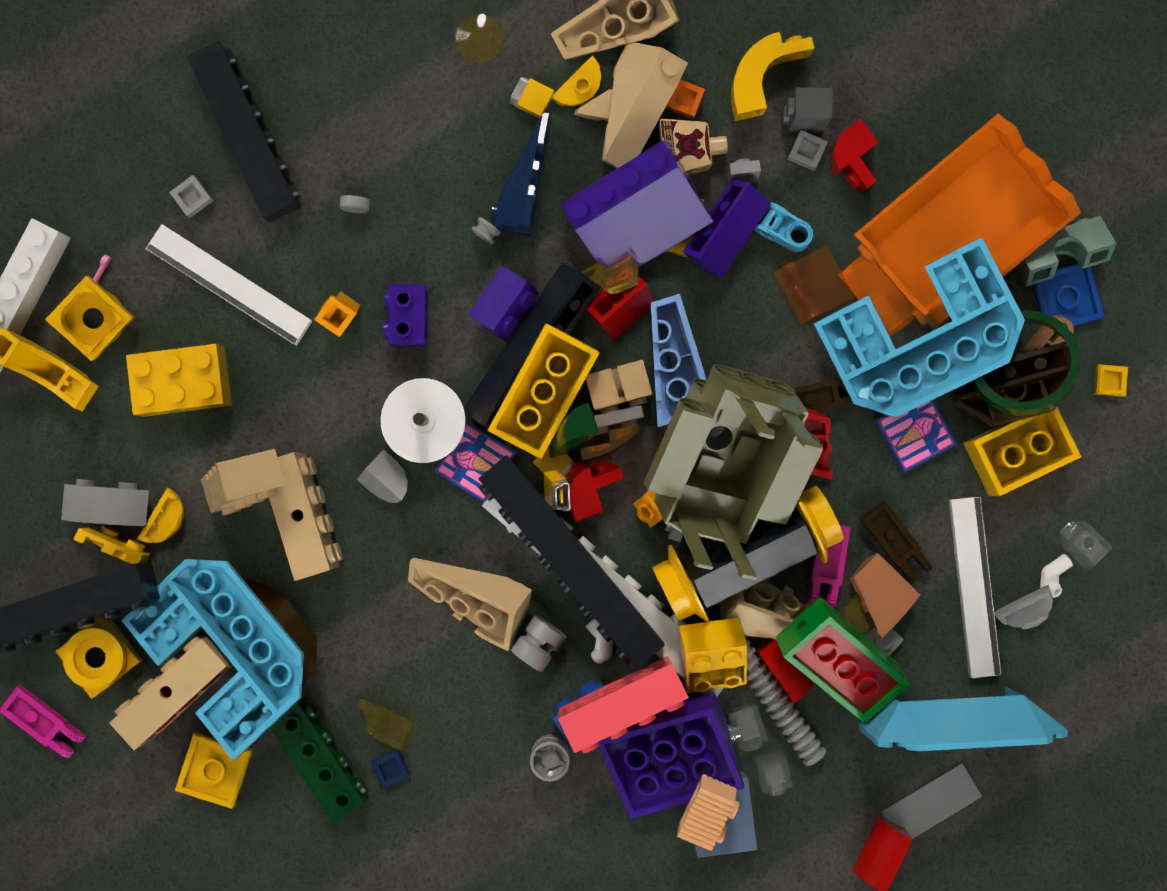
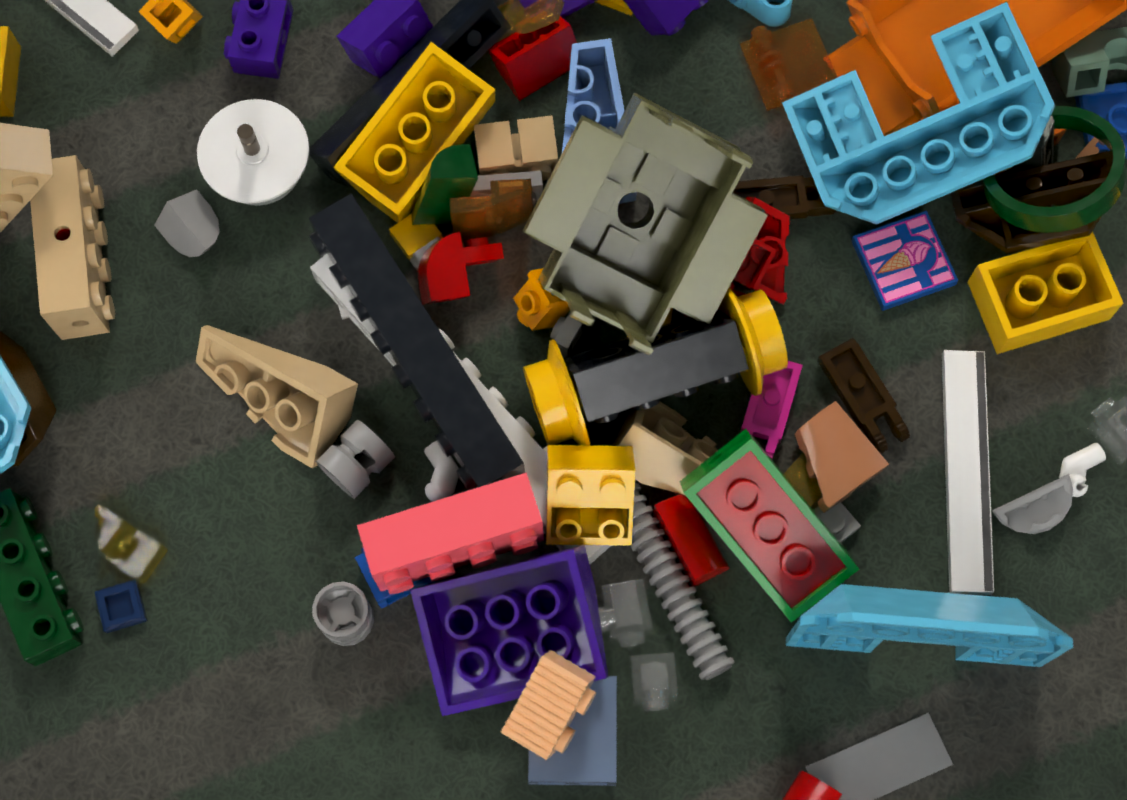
camera: 15 degrees right, 15 degrees down
(471, 459) = (289, 220): tile -> none
(556, 490) = (413, 259): piece -> none

